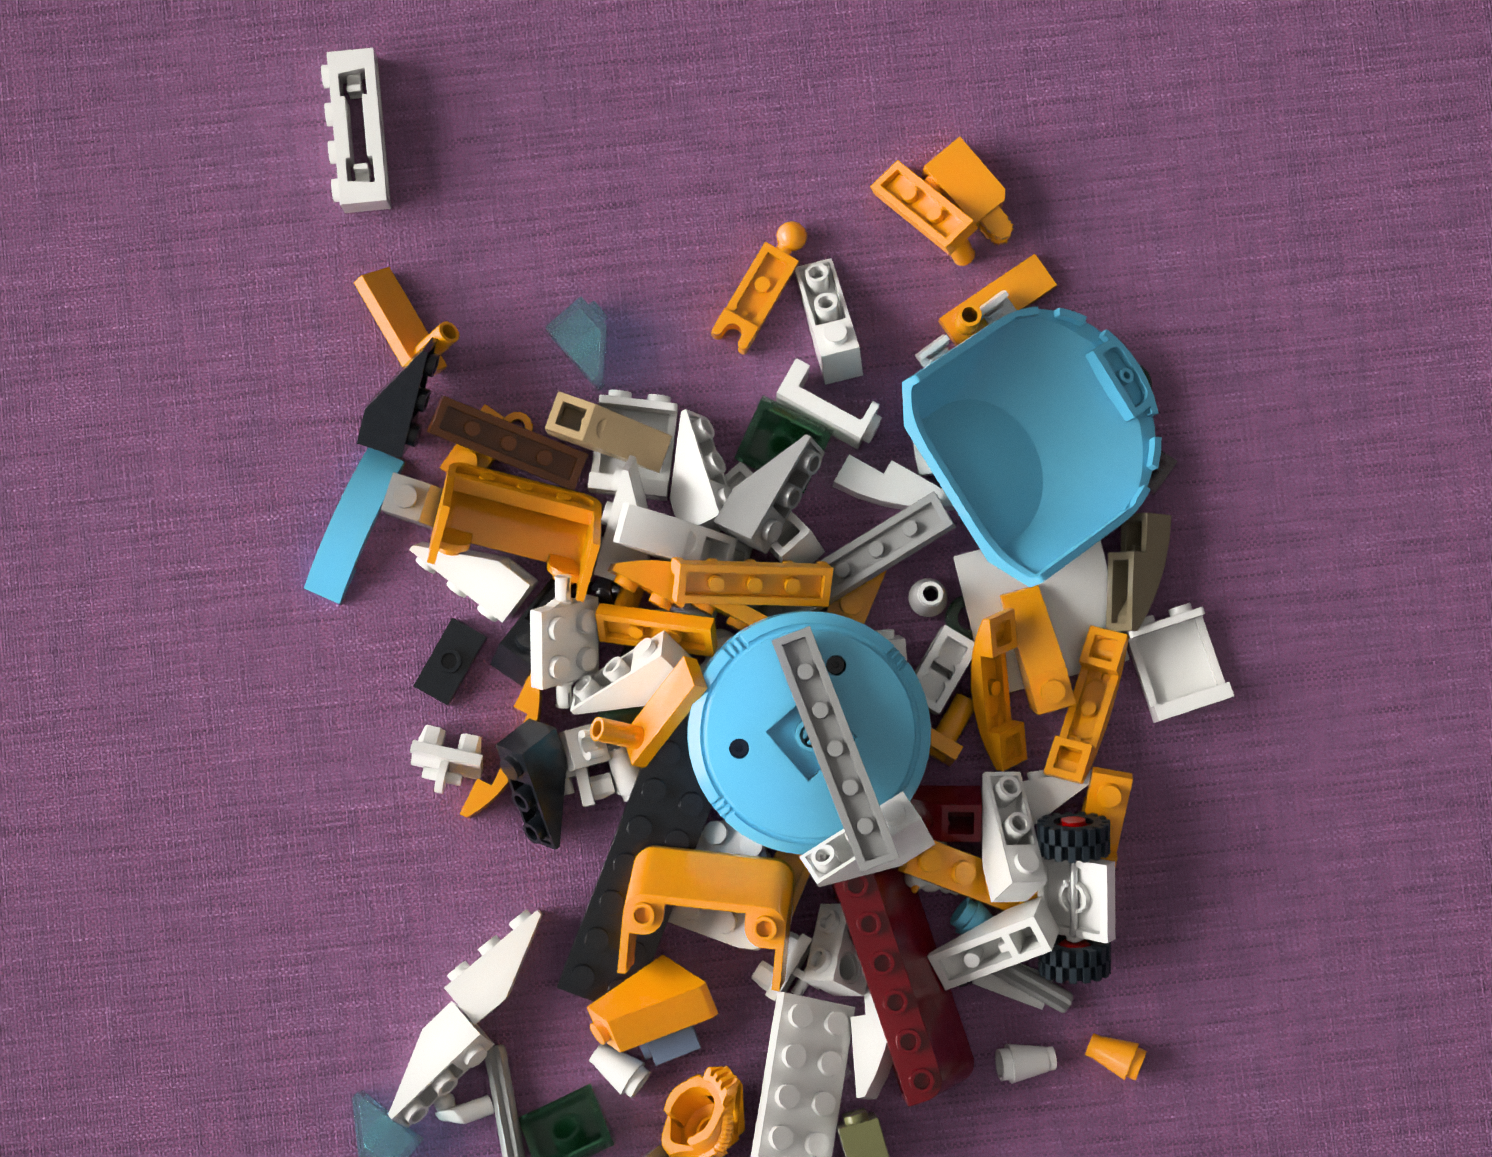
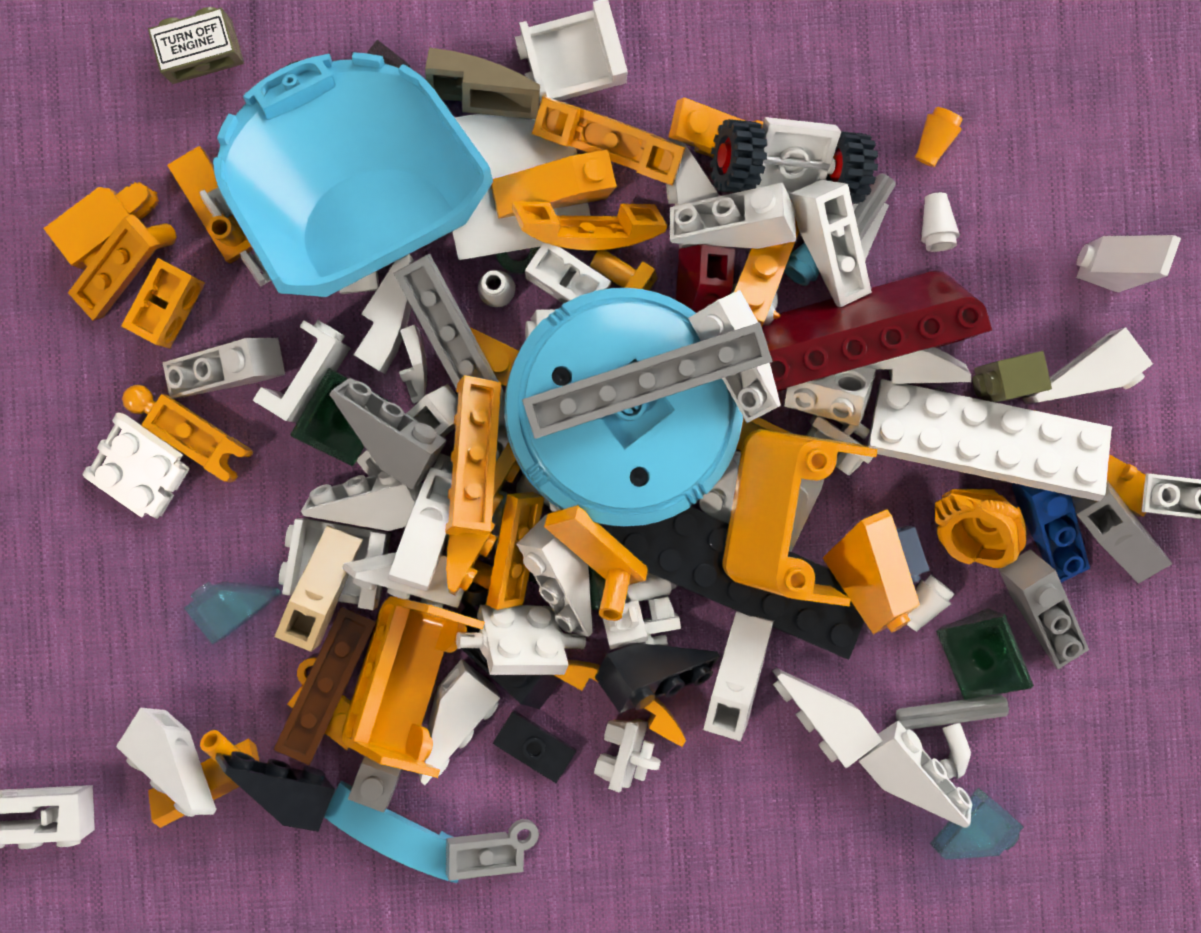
camera: 85 degrees left, 5 degrees up
(339, 620) = (489, 853): none -> light grey hinge
(431, 286) = (168, 756): none -> white slope
(534, 870) = (738, 676): none -> white slope
(720, 239) = (138, 468): none -> white plate
(830, 518) = (417, 375): none -> white slope
(890, 259) = (163, 304): none -> light orange brick
(1159, 276) = (195, 45): none -> brick

